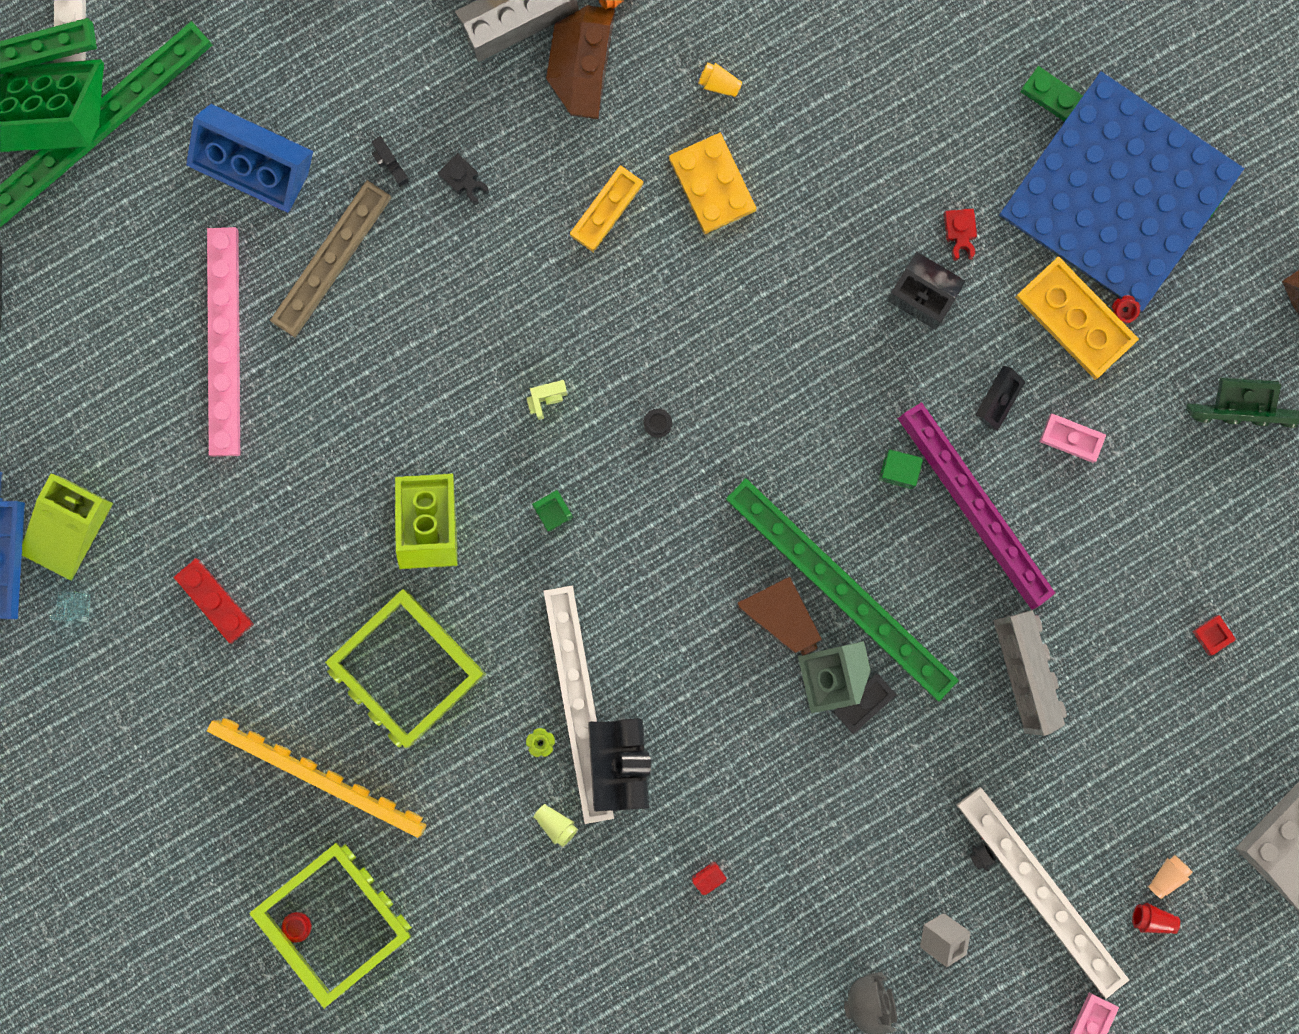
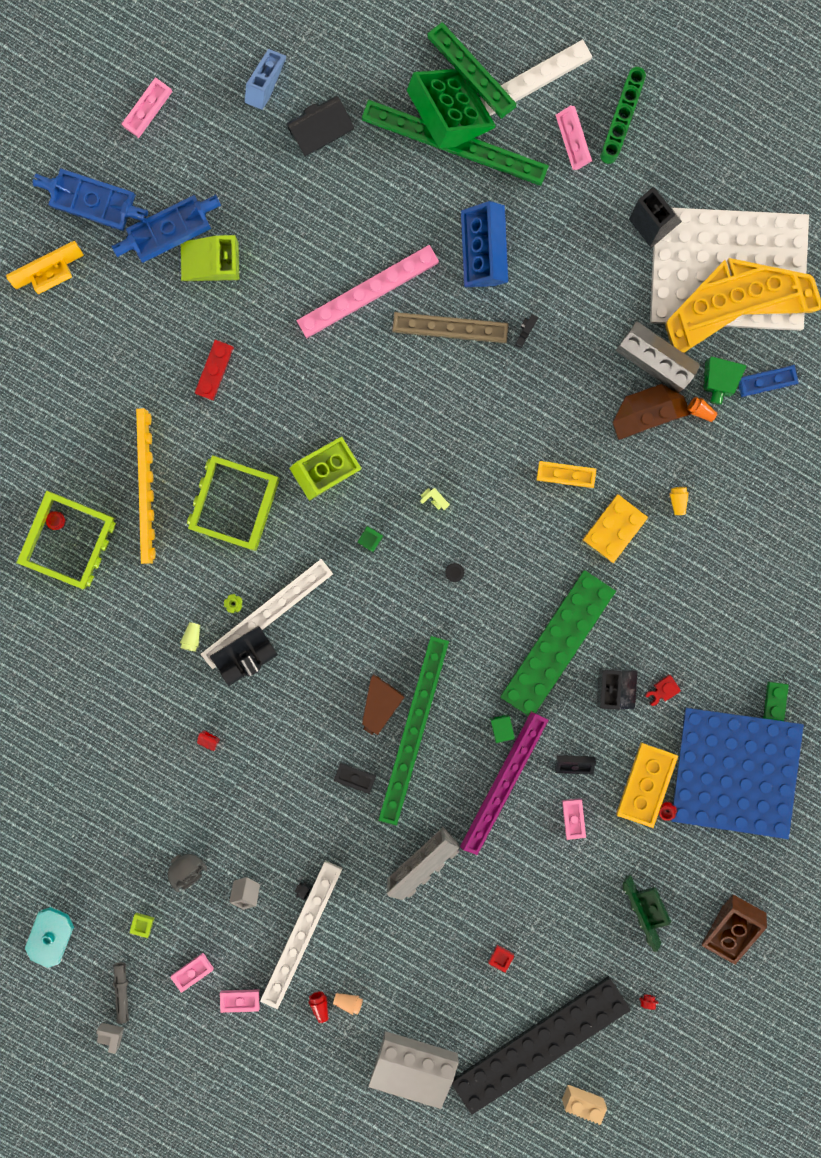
camera: 65 degrees right, 5 degrees up
(72, 607) = (166, 290): clear light blue panel -> none
(462, 177) = (539, 377): black plate -> none
(825, 337) = (558, 643): none -> green plate
(835, 676) = (361, 753): sand green slope -> none

